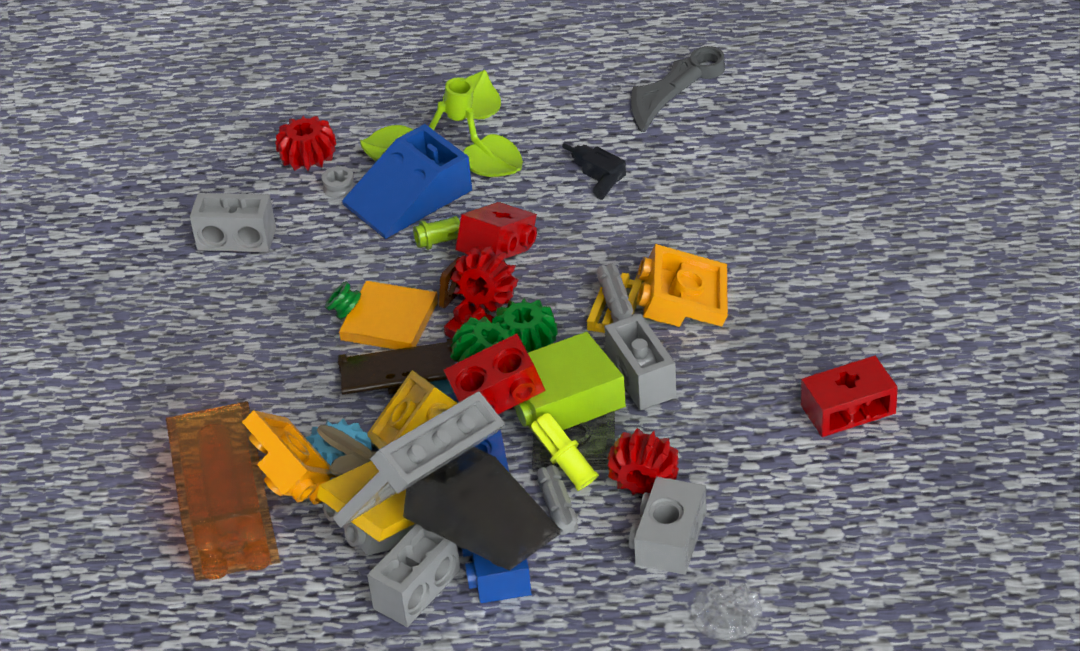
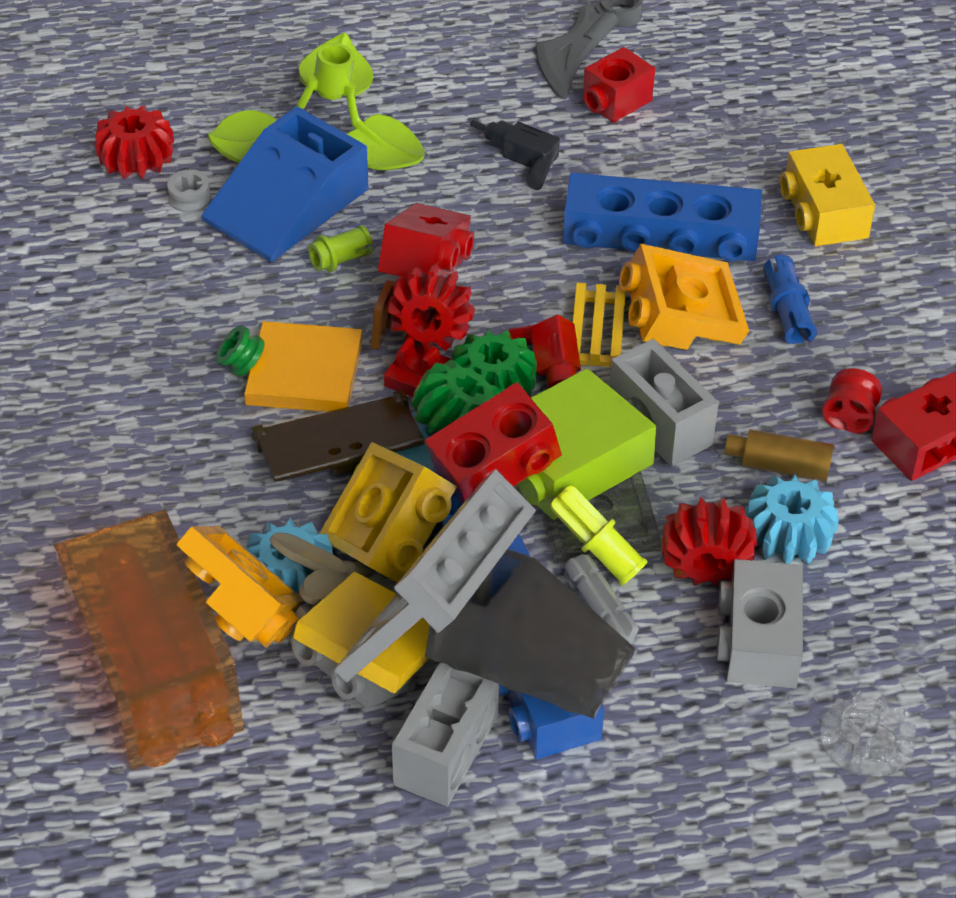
camera: 15 degrees left, 5 degrees up
(233, 222) = (65, 255): light grey brick -> none
(573, 314) = (553, 347): none -> red piece
(614, 292) = (600, 313): light grey axle -> none
(683, 123) = (618, 84): none -> red brick
(687, 225) = (663, 215): none -> blue brick
(714, 454) = (792, 518): none -> medium azure gear
(725, 408) = (782, 454): none -> pearl gold cylinder
(768, 295) = (789, 299): none -> blue pin
(786, 375) = (852, 400): none -> red wheel
(821, 217) = (827, 195): none -> yellow brick

